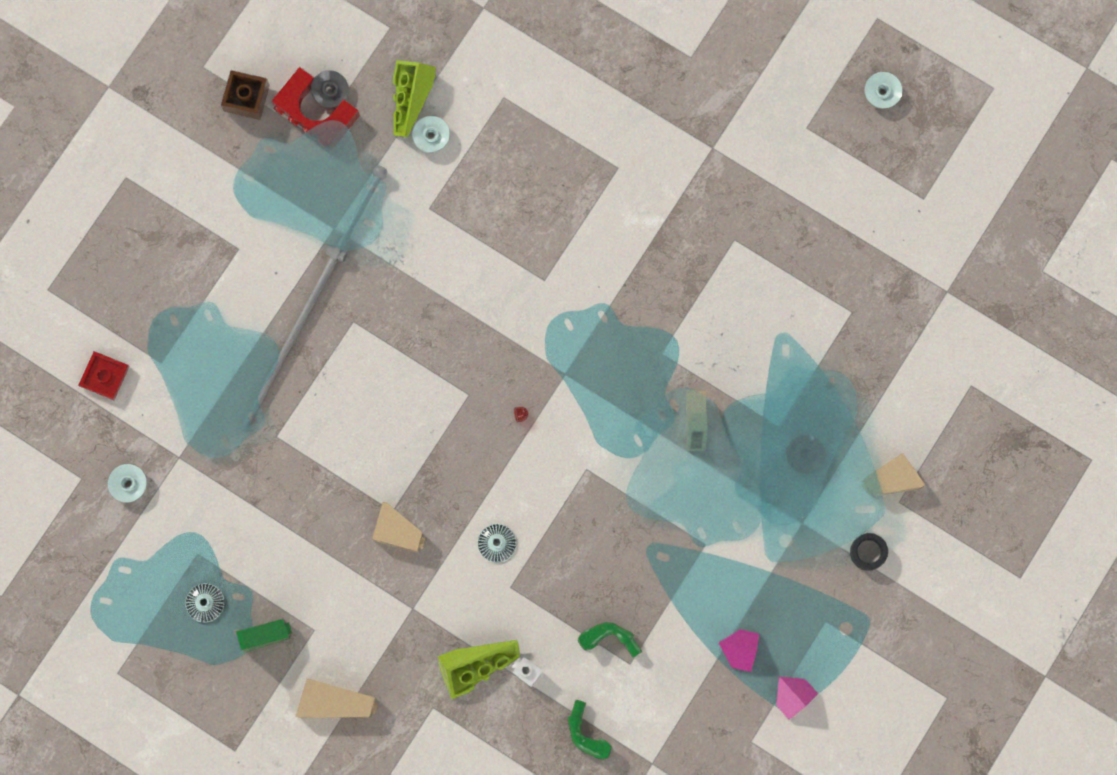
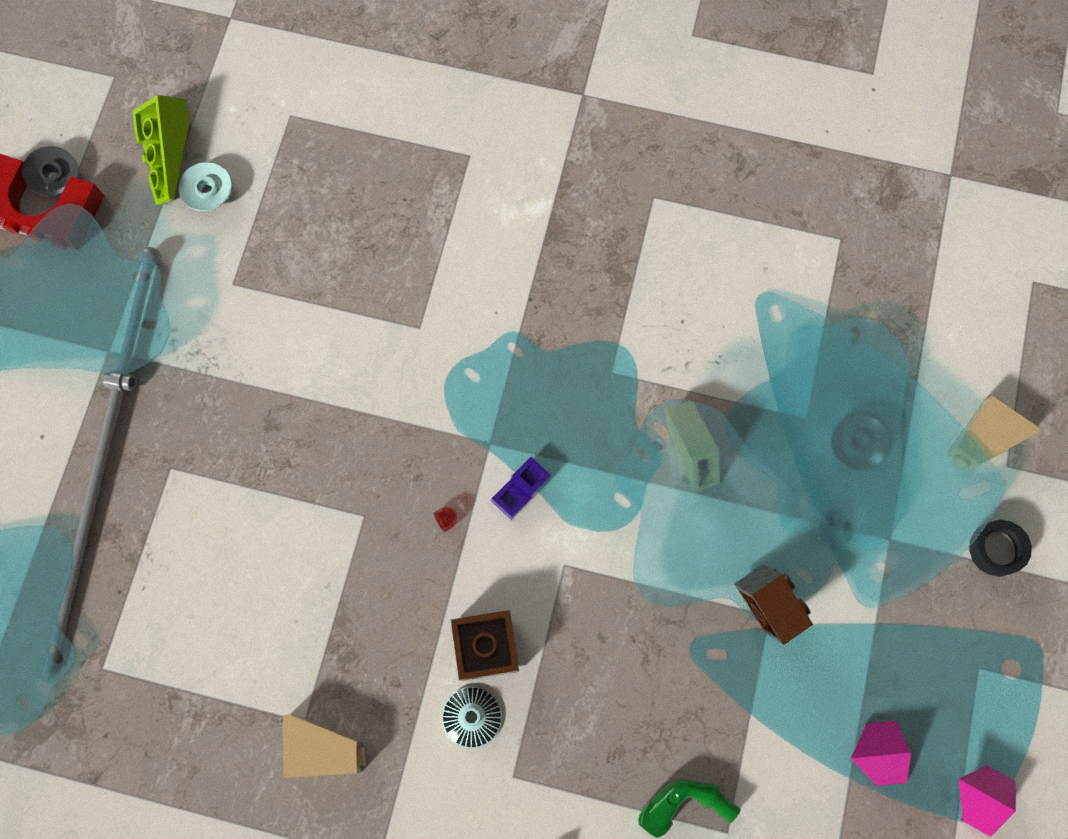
camera: 20 degrees left, 5 degrees down
(519, 501) = (484, 645): none -> reddish brown brick
(575, 410) = (521, 488): none -> dark purple slope
(708, 540) = (774, 603): none -> reddish brown brick

